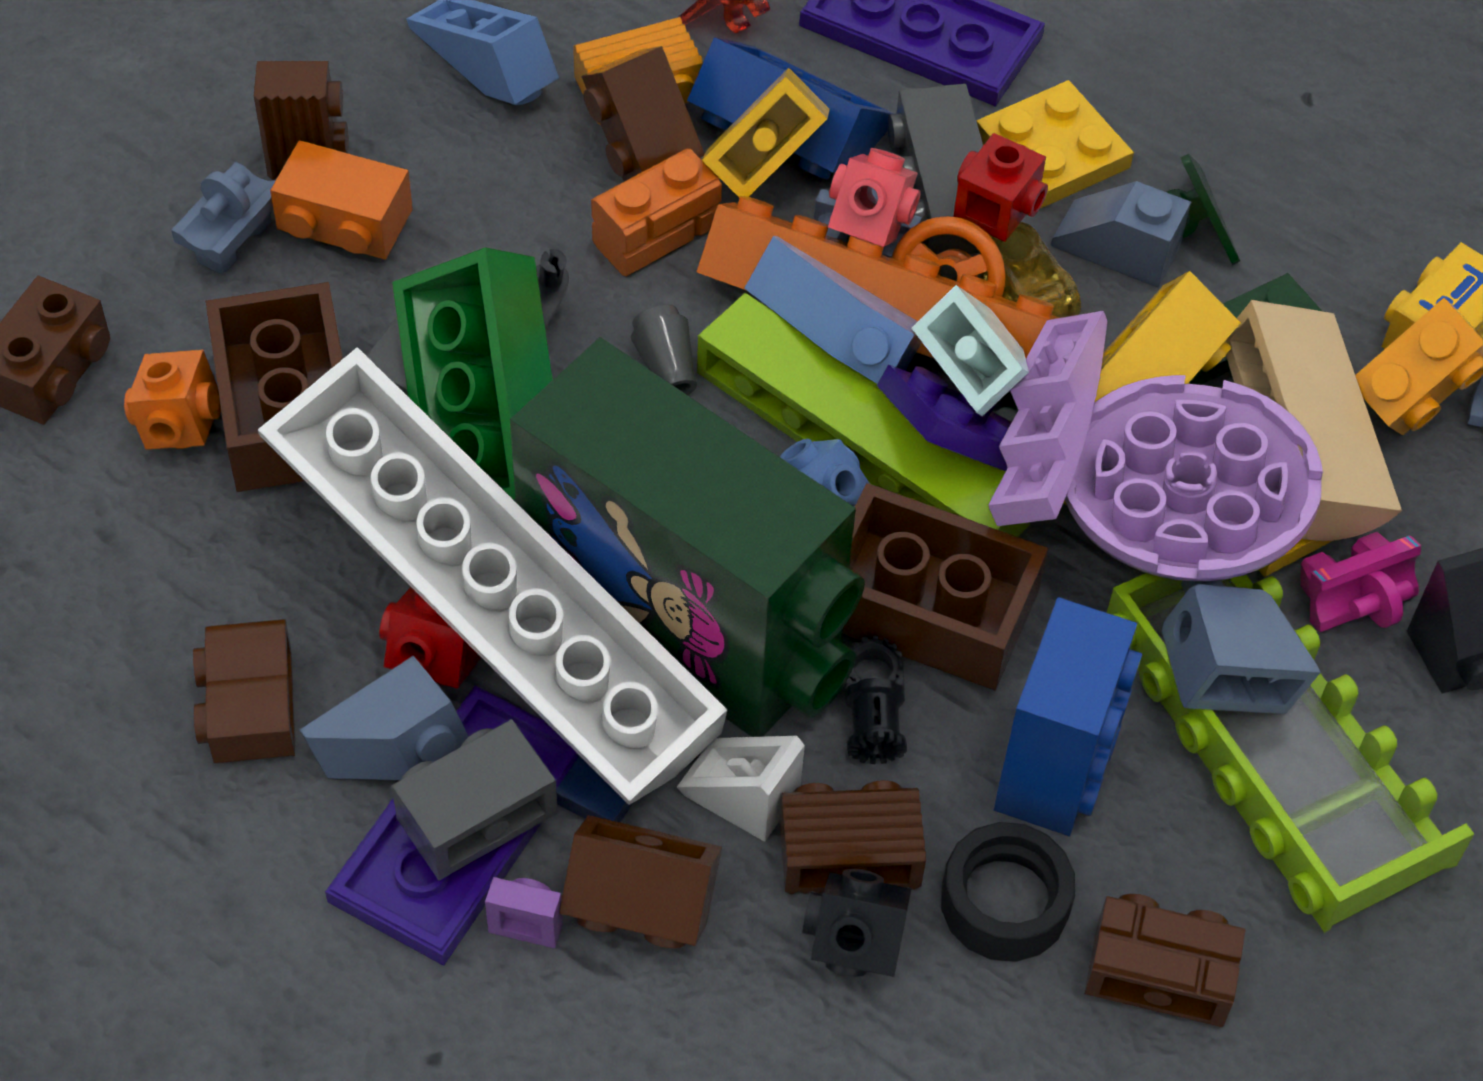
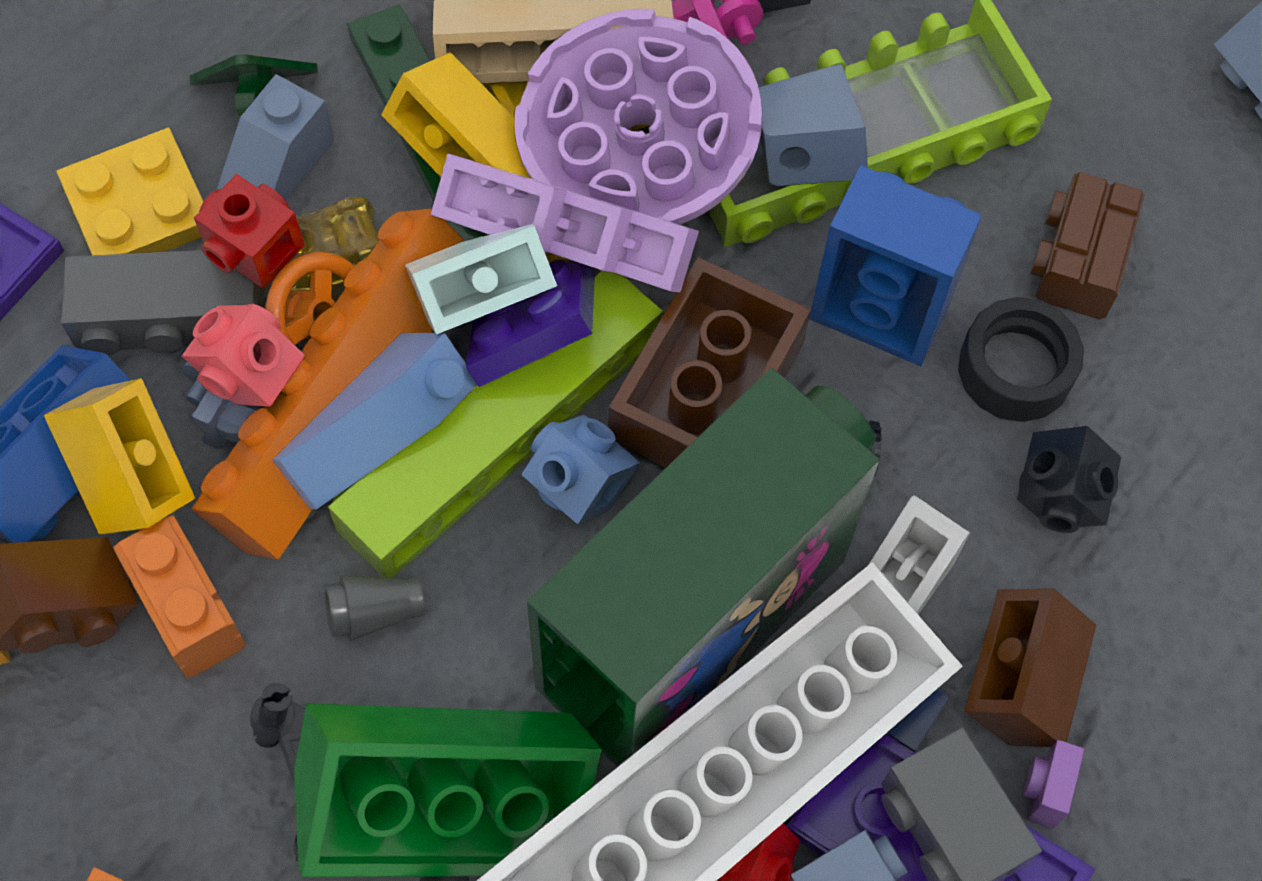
camera: 85 degrees left, 10 degrees up
(851, 829) = (974, 475): reddish brown brick -> none

